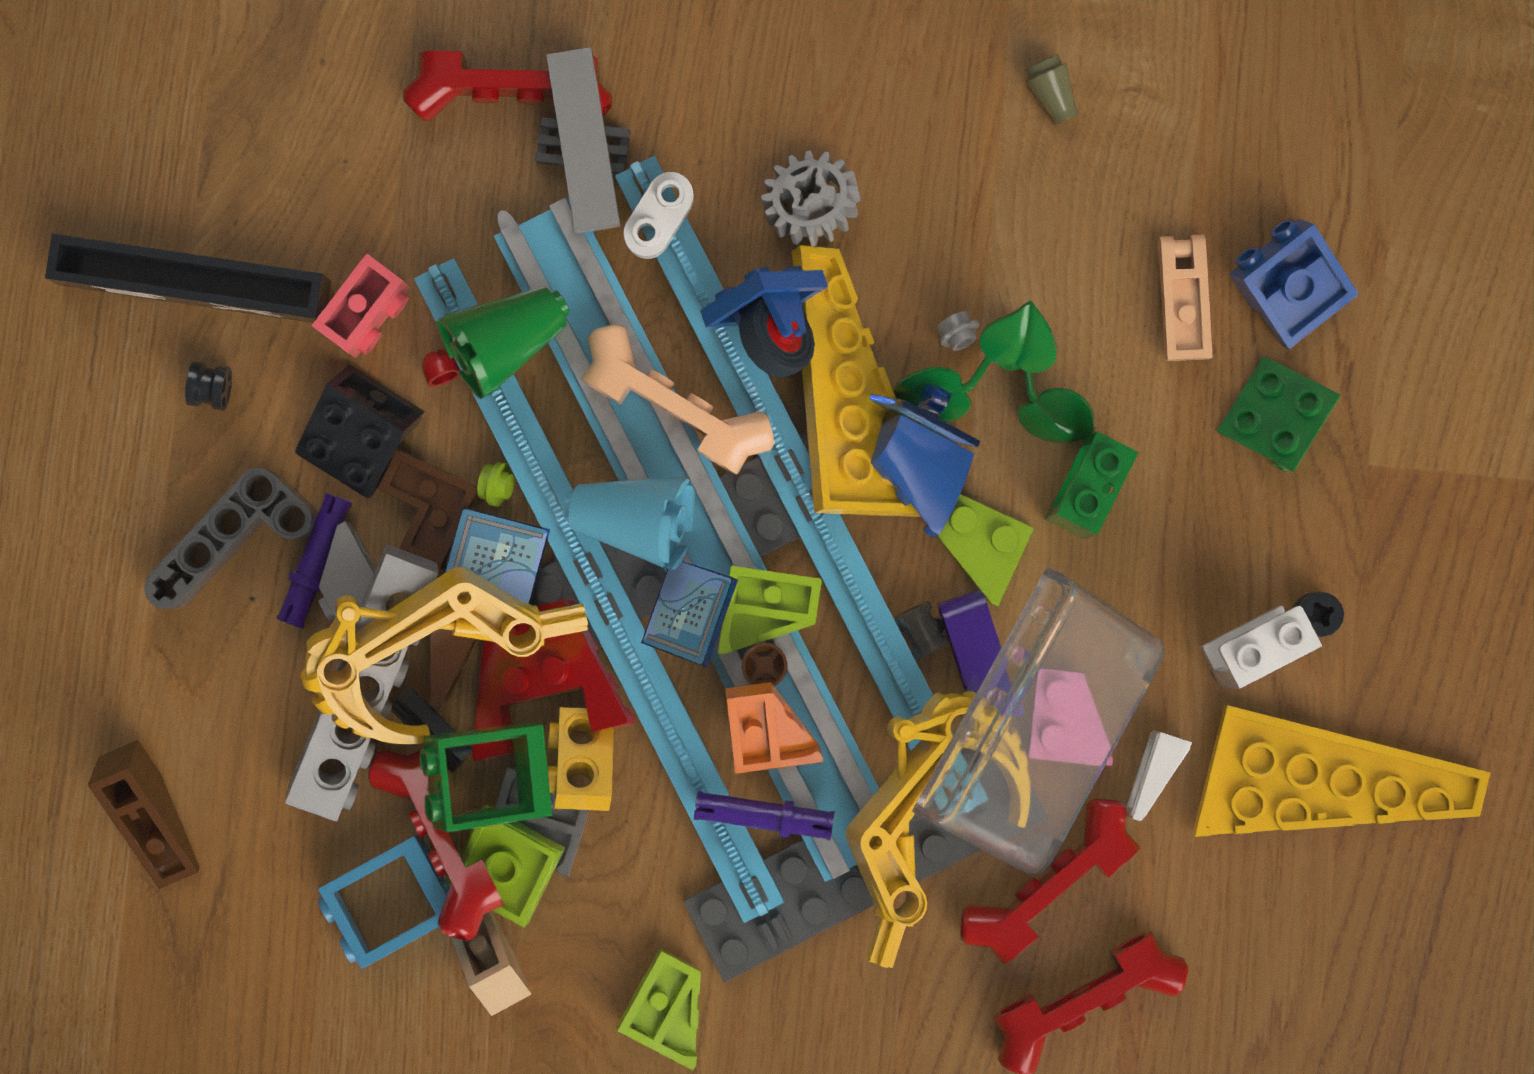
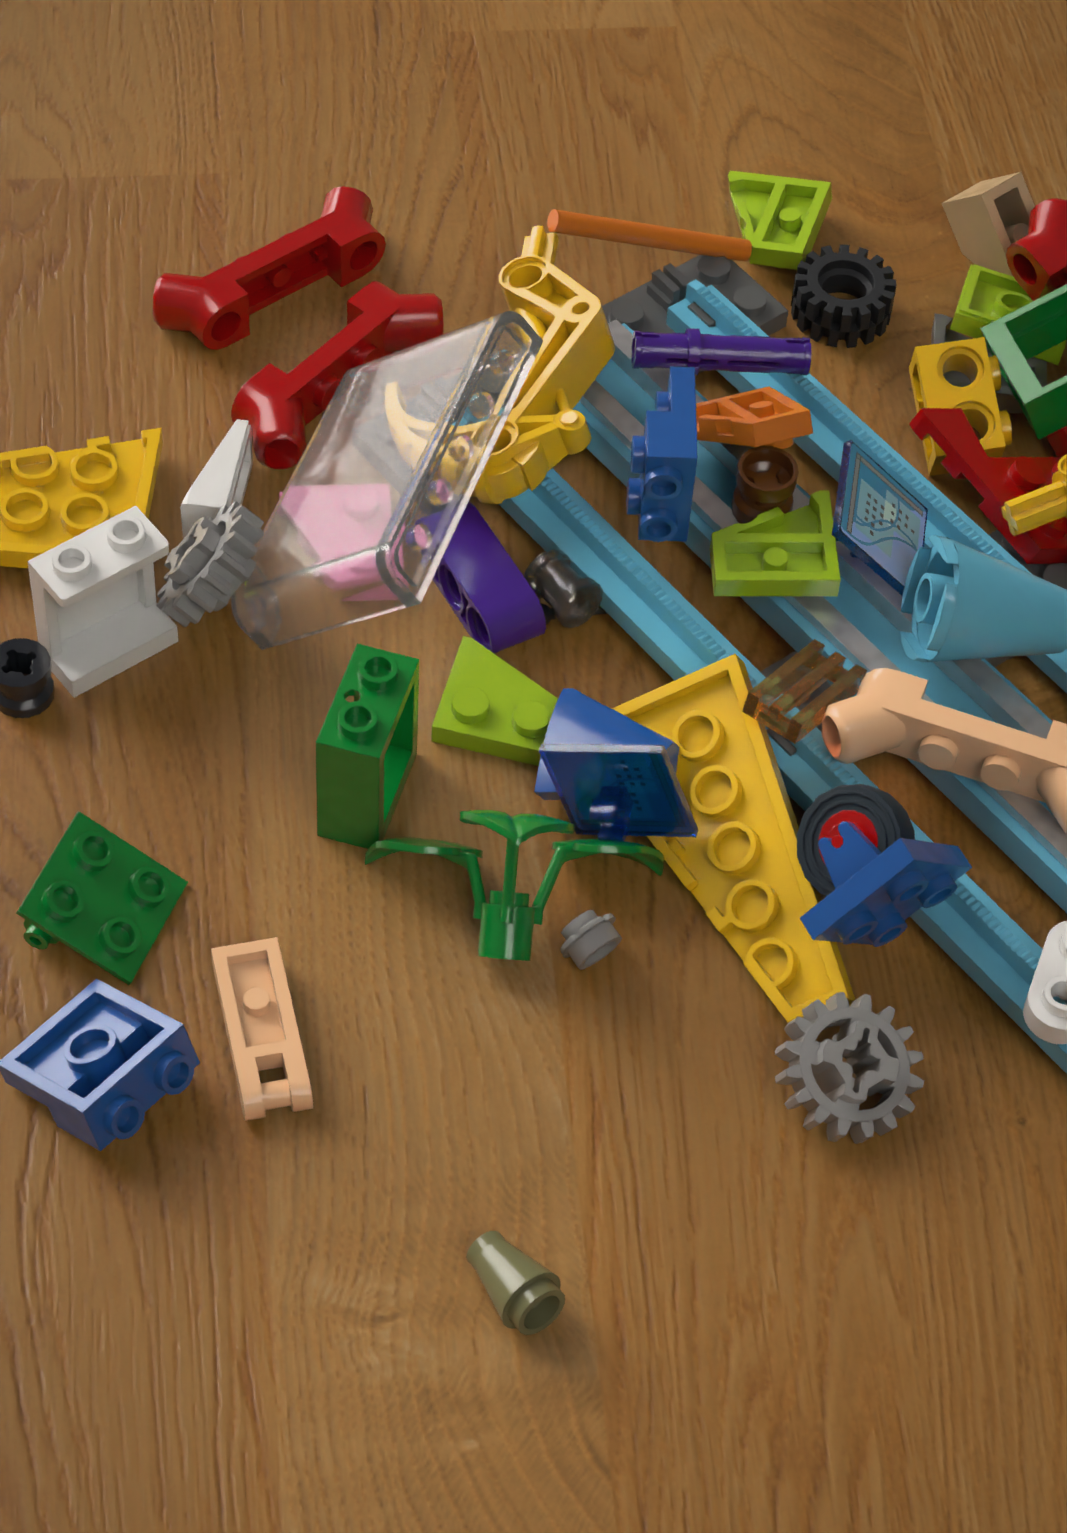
camera: 170 degrees right, 35 degrees down
(607, 911) = (840, 317): none -> black tyre
(750, 499) = (809, 658): none -> clear orange tile
(787, 967) = (648, 235): none -> orange bar
(842, 672) = (666, 462): none -> blue plate
(1177, 679) = (210, 564): none -> light grey gear

